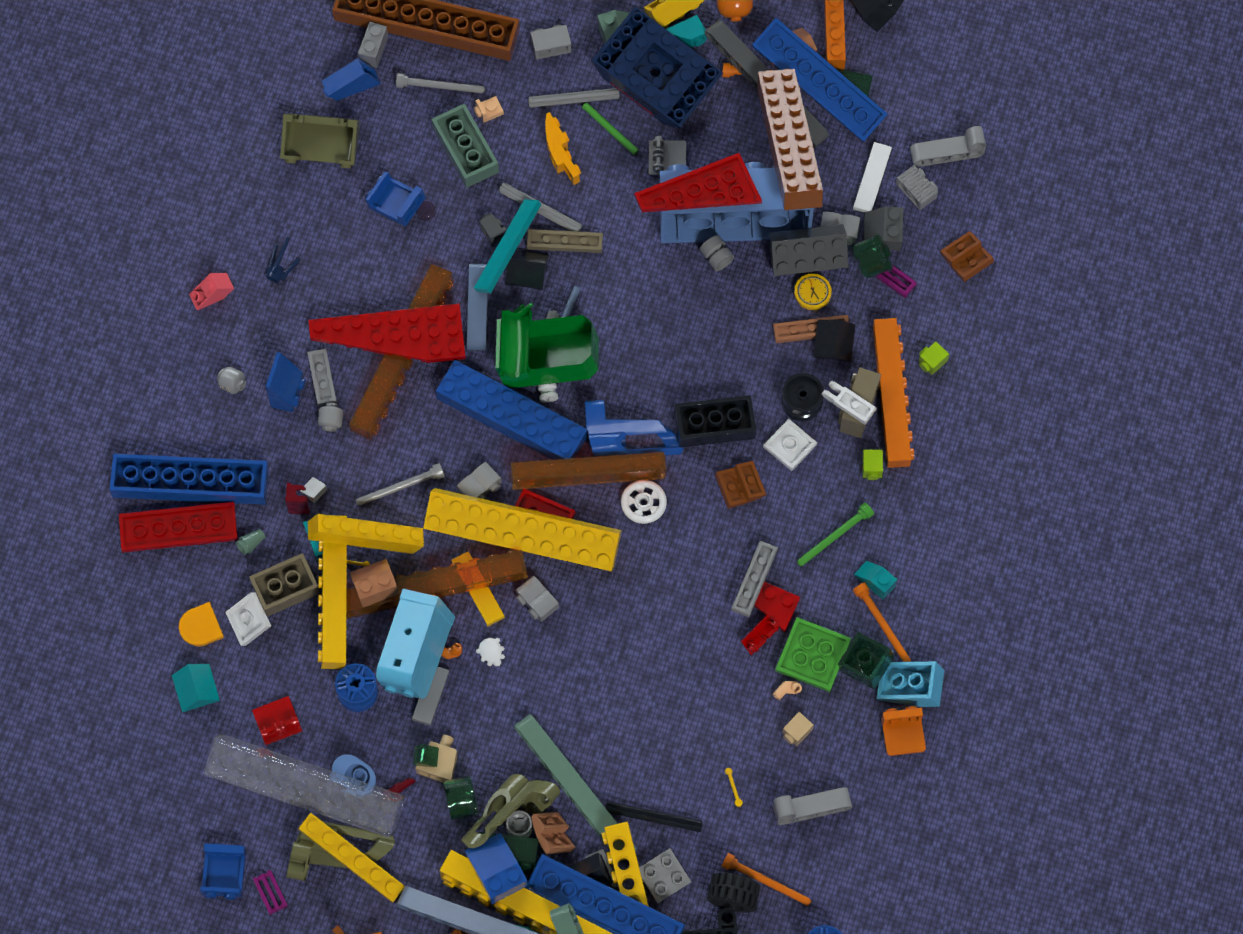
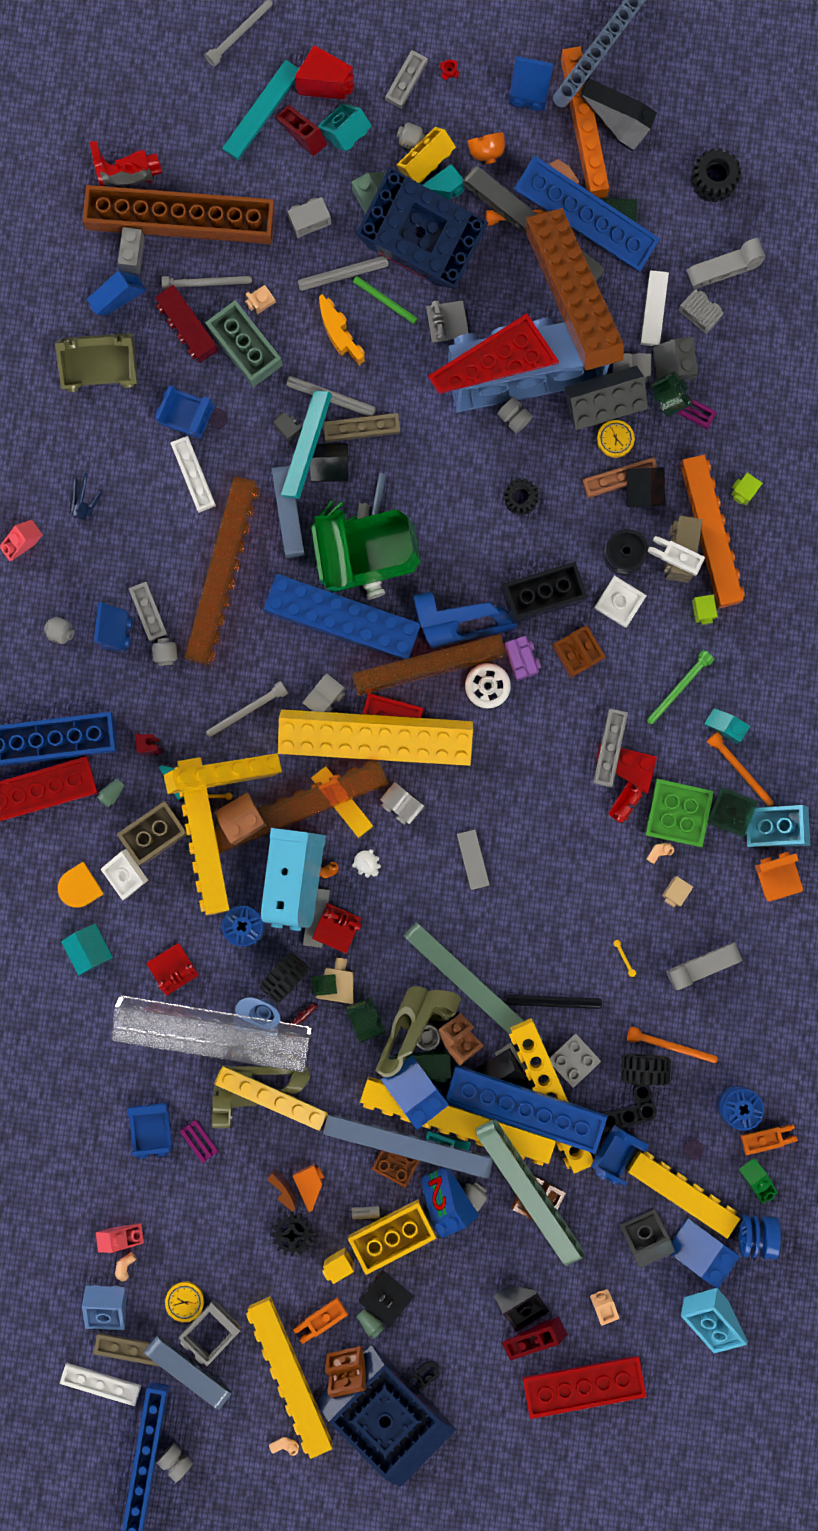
camera: 10 degrees left, 15 degrees up
(314, 489) = (162, 728): white slope -> none
(387, 741) = (284, 977): none -> black tyre
(391, 258) = (193, 474): none -> white tile
(412, 119) = (186, 324): none -> dark red brick
(415, 333) = (230, 553): red wing -> none
(448, 707) = (336, 928): none -> red hinge
(598, 665) = (473, 859): none -> light grey tile
(682, 481) = (522, 658): none -> medium lavender brick
(715, 339) = (521, 485): none -> black tyre
(952, 52) = (715, 160): none -> black tyre
(967, 256) = (761, 375): dark orange slope -> none

